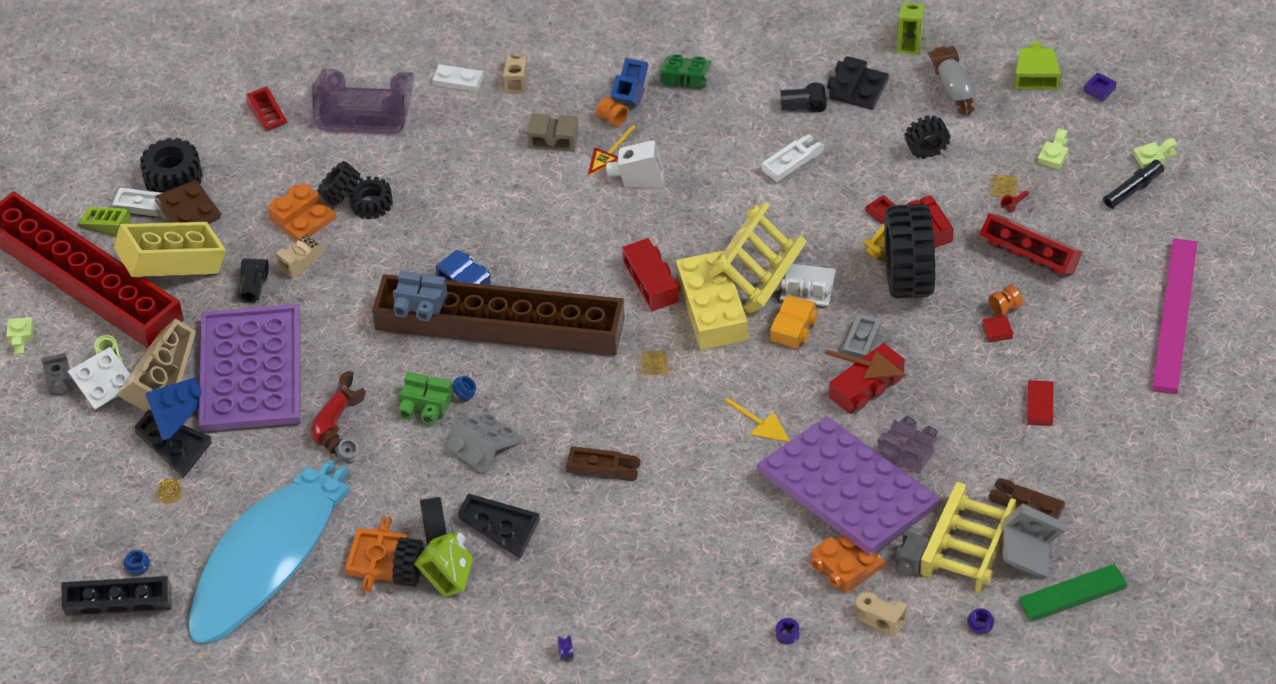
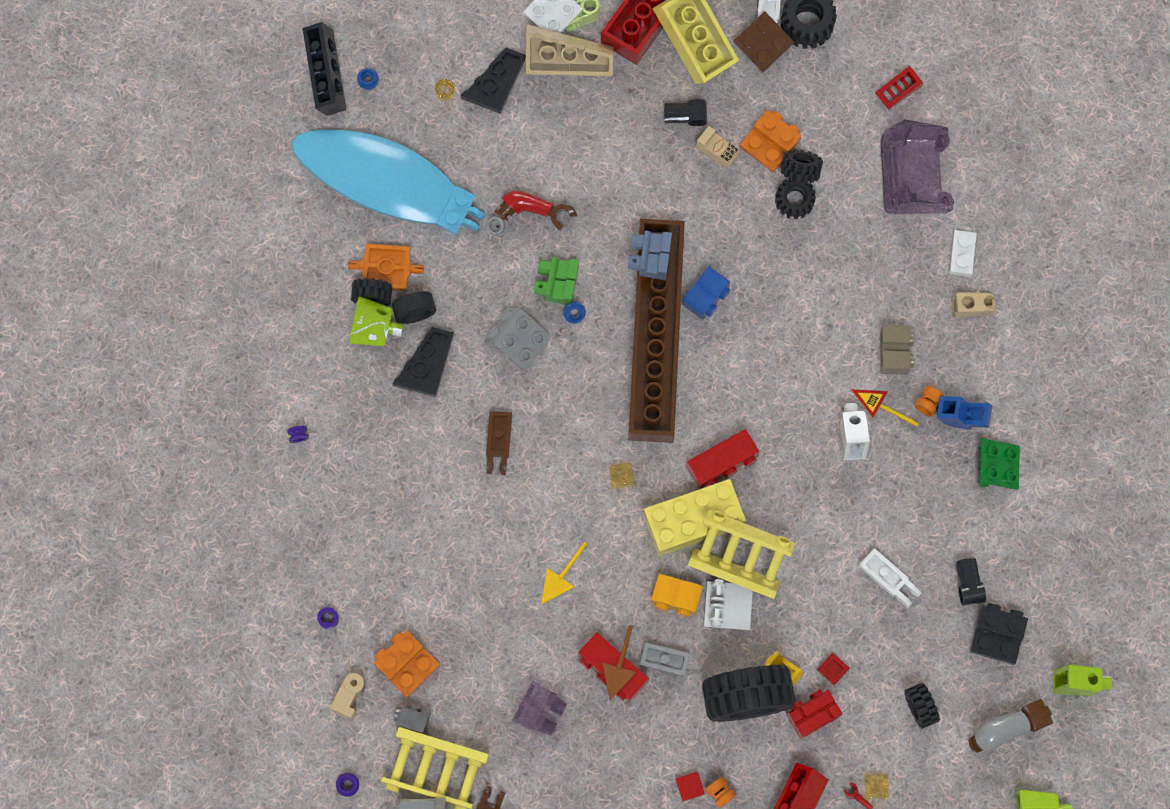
camera: 80 degrees right, 25 degrees up
(173, 405) = (522, 73): blue wing -> none
(250, 368) = (584, 129): medium lavender plate -> none
(848, 485) = (487, 659): medium lavender plate -> none

